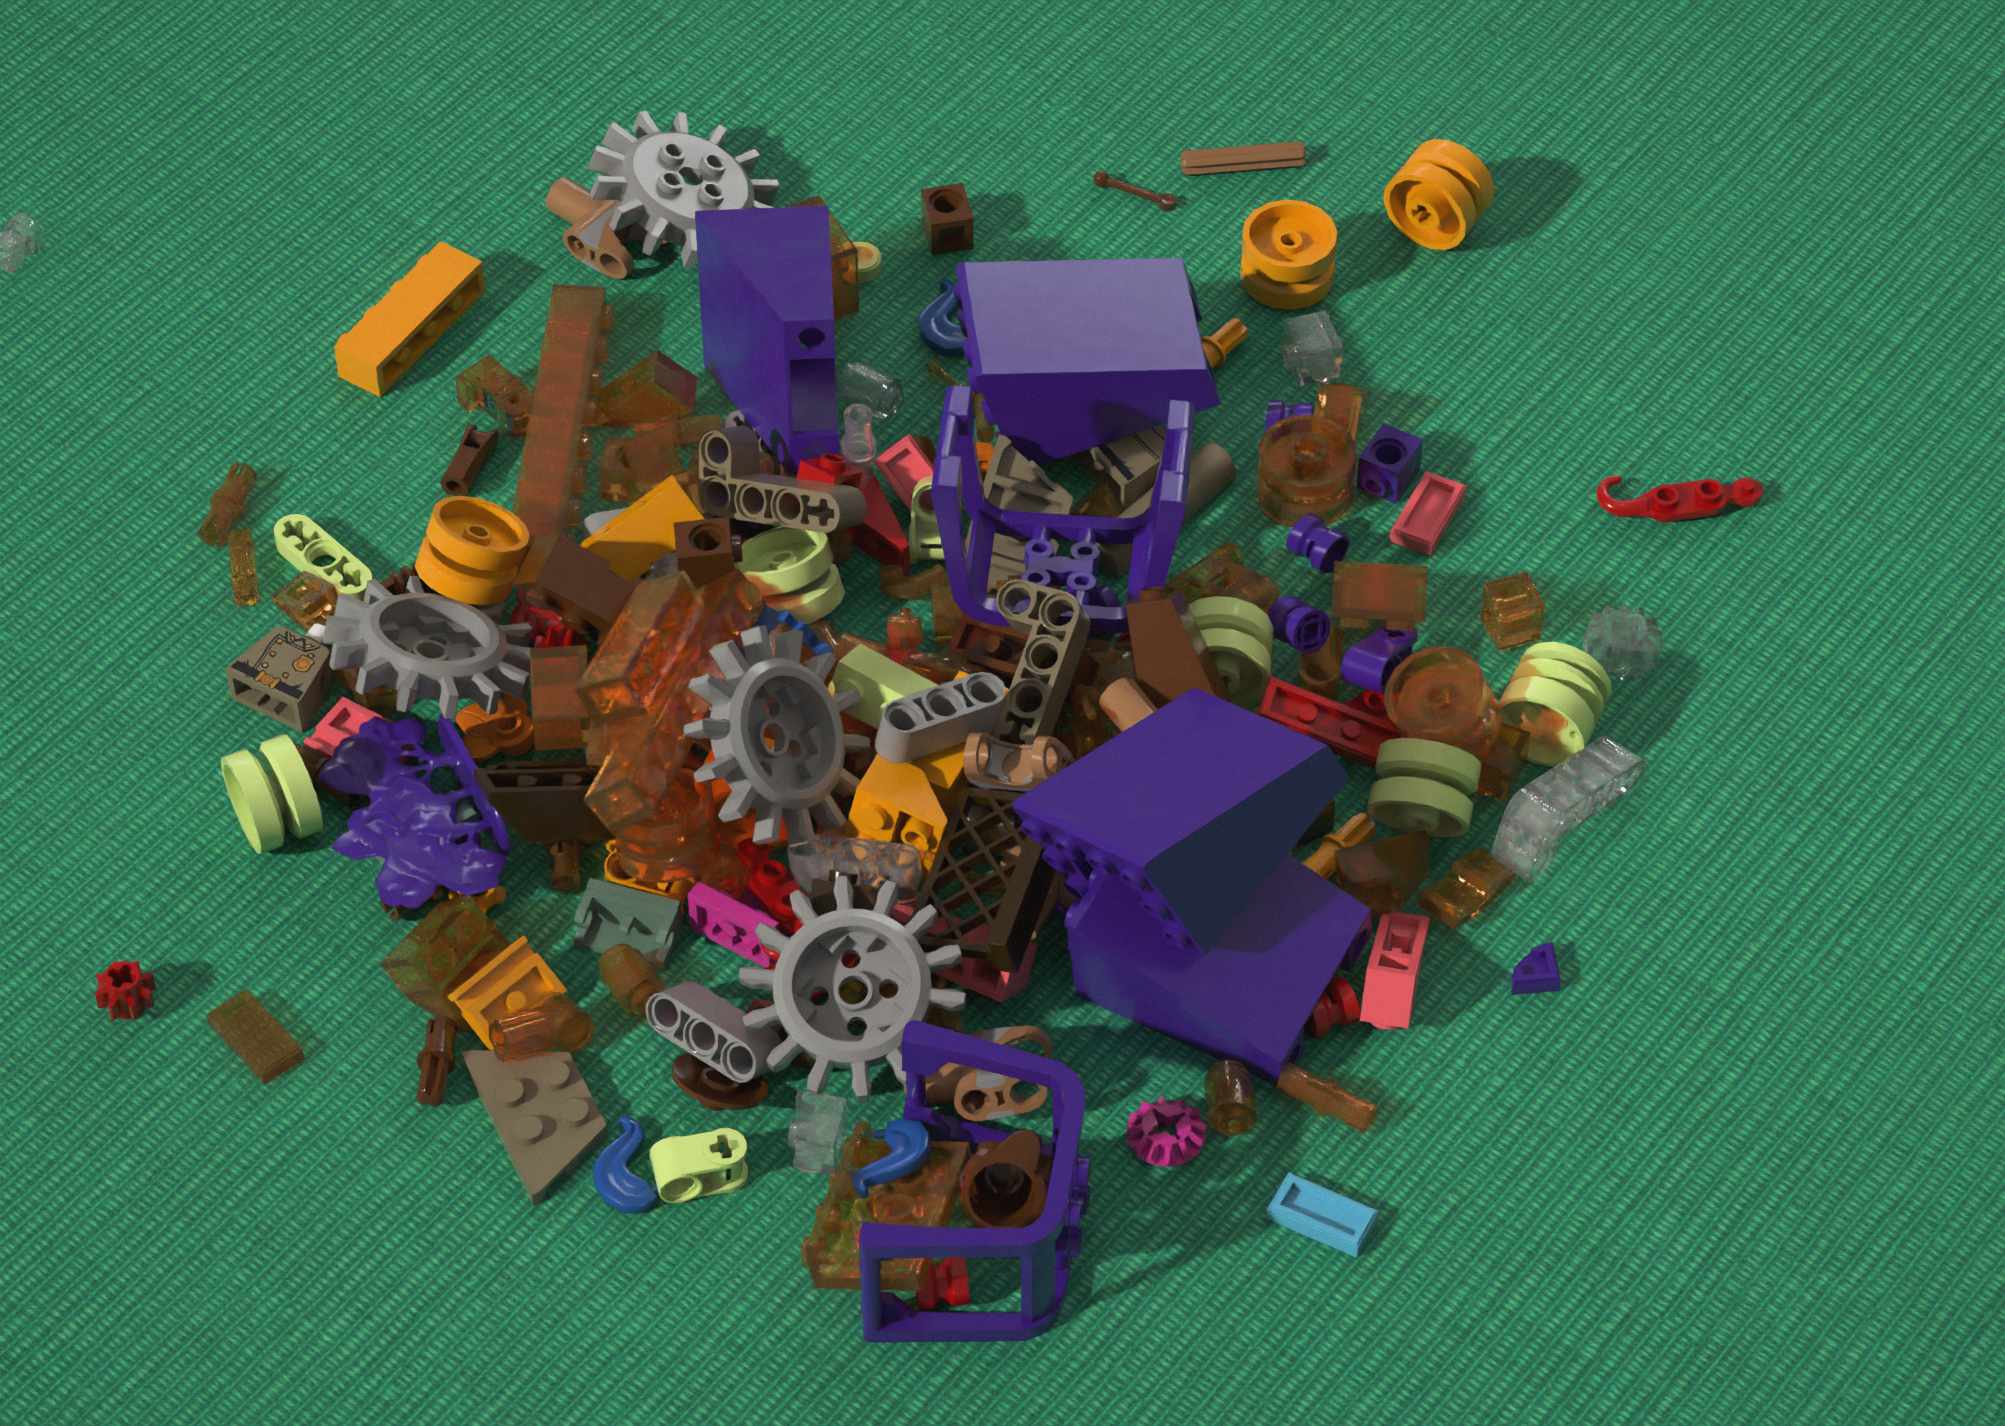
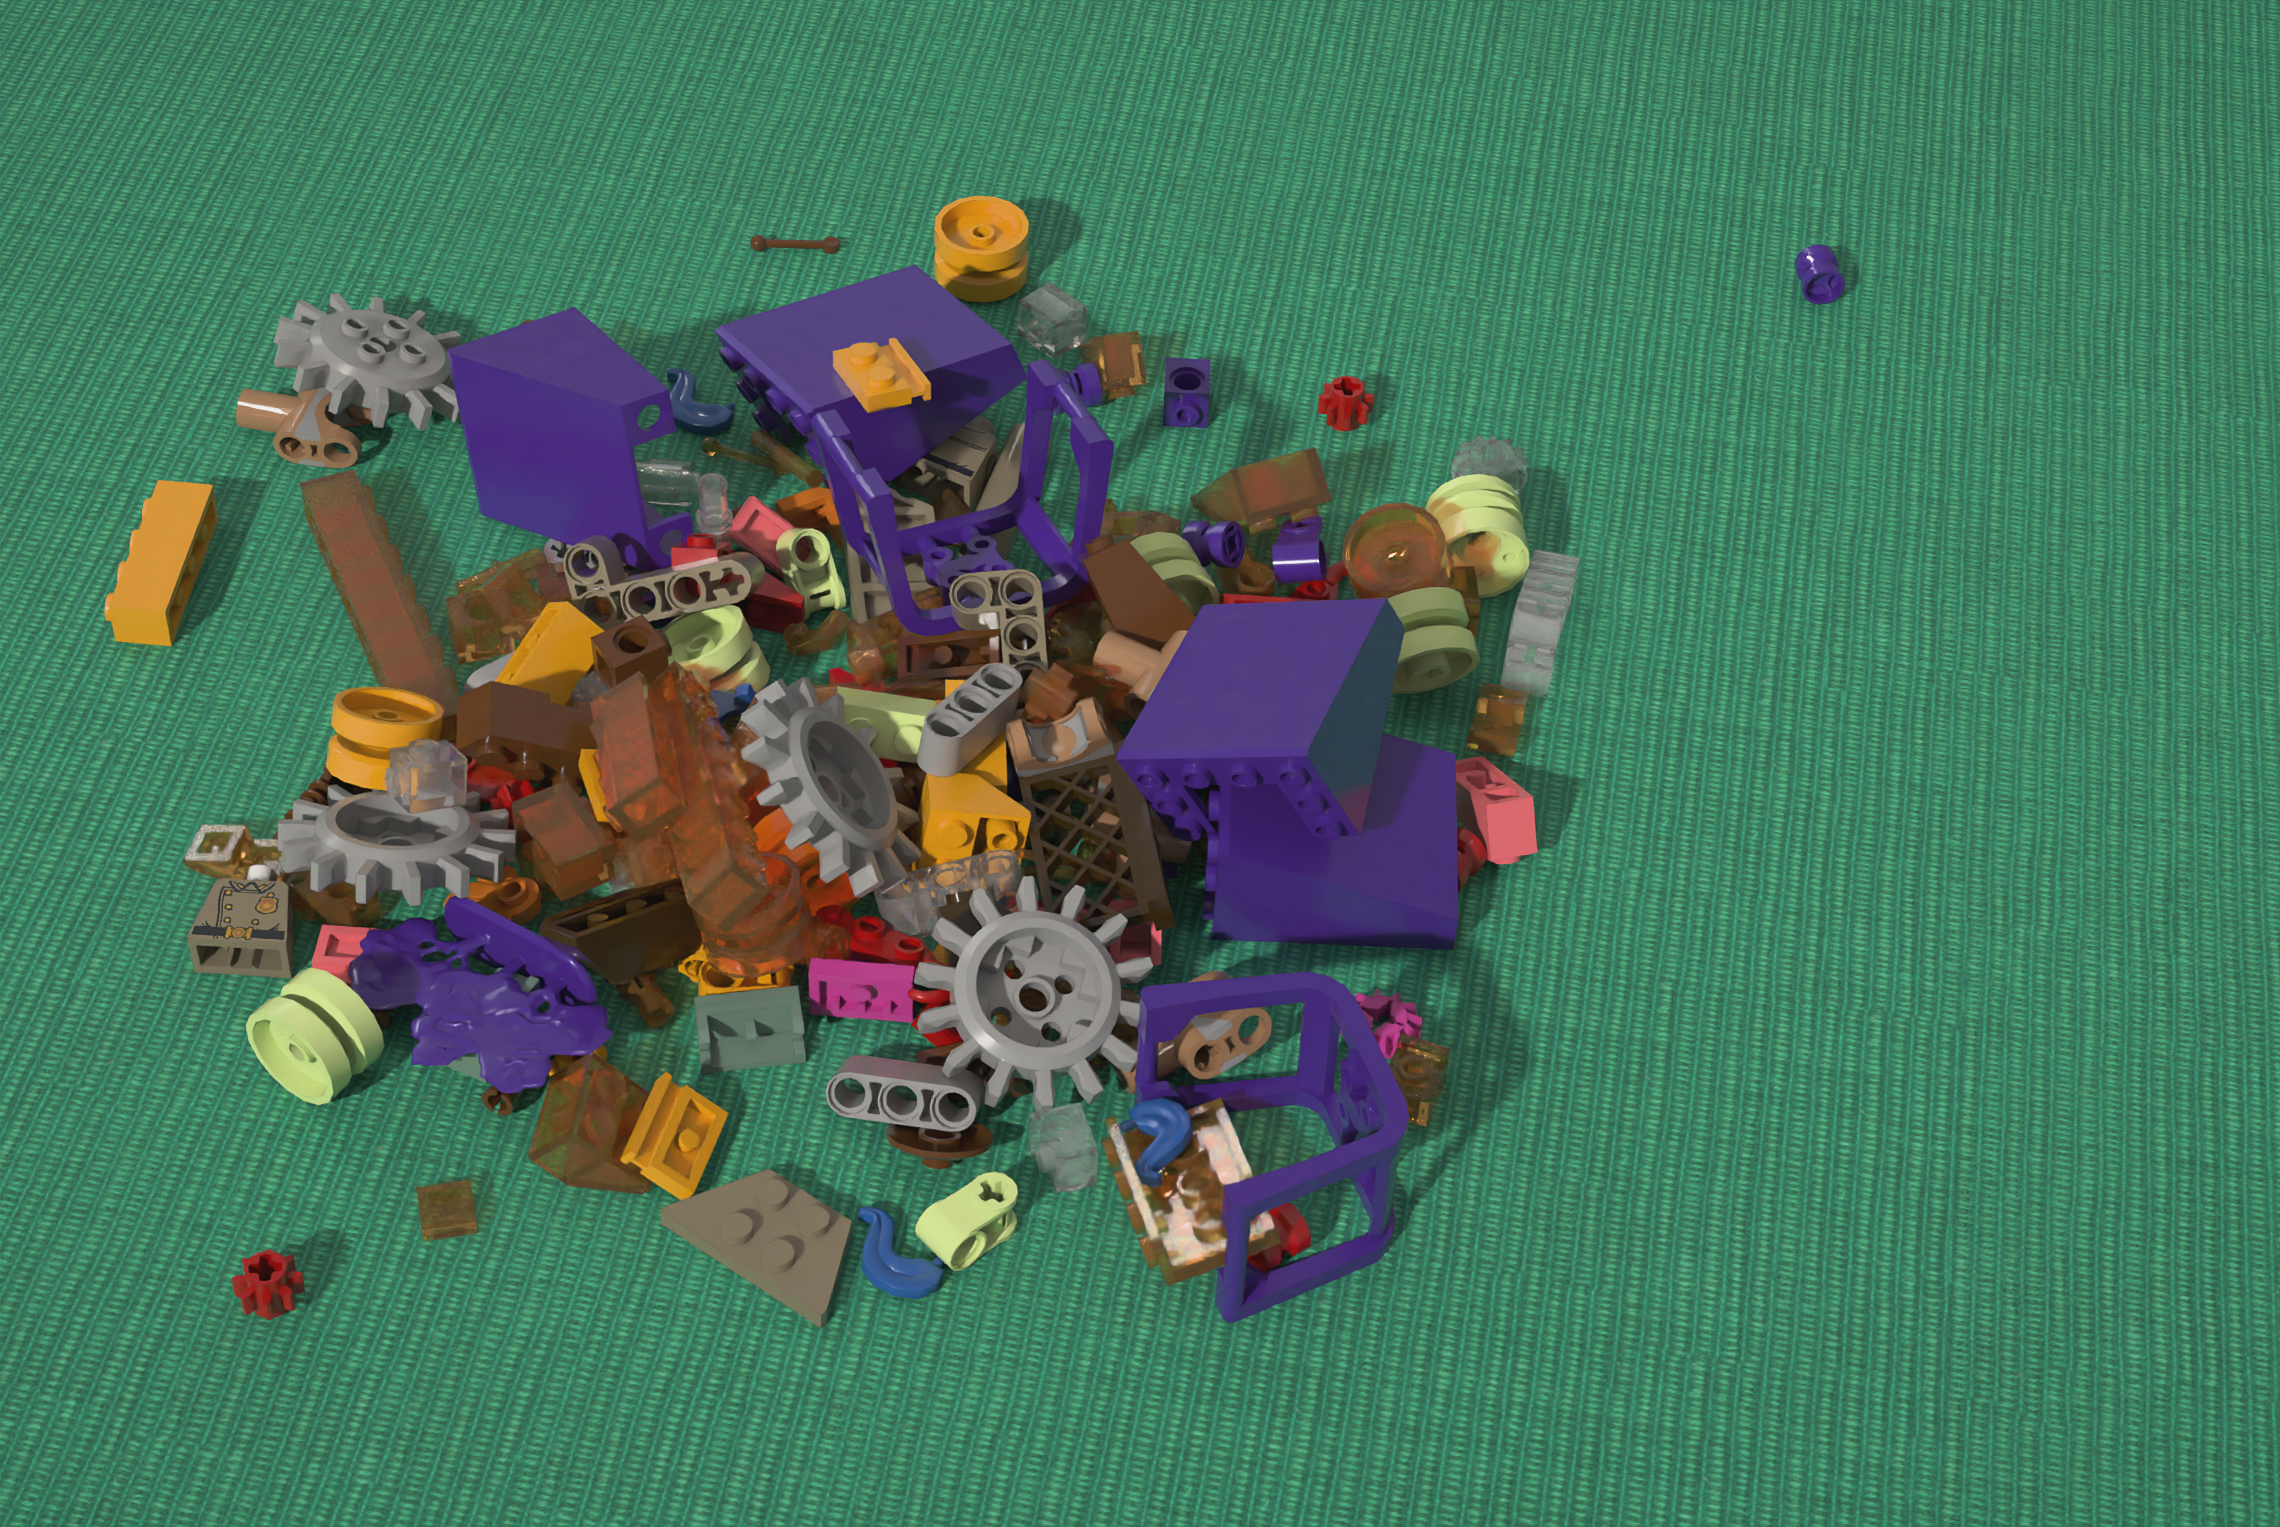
camera: 30 degrees left, 5 degrees down
(227, 504) = (78, 792): clear orange pin -> none
(243, 567) = (132, 844): clear orange axle -> none
(255, 1036) = (431, 1278): clear orange tile -> none
(301, 983) = (446, 1210): none -> clear orange tile
(320, 543) = (171, 795): yellowish green beam -> none
(436, 1060) = (640, 1228): reddish brown axle -> none
(469, 461) = (306, 673): reddish brown bar -> none
(479, 598) = (427, 776): none -> clear brick
(497, 393) = (301, 602): clear orange leg -> none
(551, 1024) = (735, 1151): clear orange piece -> none
(629, 978) = (787, 1078): clear orange brick -> none
(648, 393) = (453, 550): clear orange slope -> none
(947, 218) = (641, 315): reddish brown brick -> none
(1006, 1181) = (1285, 1117): reddish brown piece -> none
(1029, 717) = (1047, 694): none -> clear orange gear
(1060, 362) = (881, 375): none -> light orange plate
(1154, 1194) = (1420, 1074): none -> clear orange brick
(1230, 1098) = (1421, 972): clear orange brick -> none
(1242, 158) = (876, 188): medium nougat axle -> none
(1305, 468) = (1133, 412): clear orange wheel -> none
(1317, 542) = (1169, 477): dark purple wheel -> none
(1322, 1214) = (1568, 1042): medium azure tile -> none
(1327, 1098) = (1506, 939): clear orange pin -> none
(1384, 871) = (1425, 718): clear orange slope -> none
(1428, 513) = (1243, 425): coral tile -> none
(1439, 194) = (1084, 159): light orange wheel -> none
(1512, 611) = (1383, 473): clear orange brick -> none
(1531, 526) = (1345, 403): none -> red gear
(1537, 972) = (1606, 767): dark purple tile -> none
(1681, 500) = (1451, 344): red piece -> none

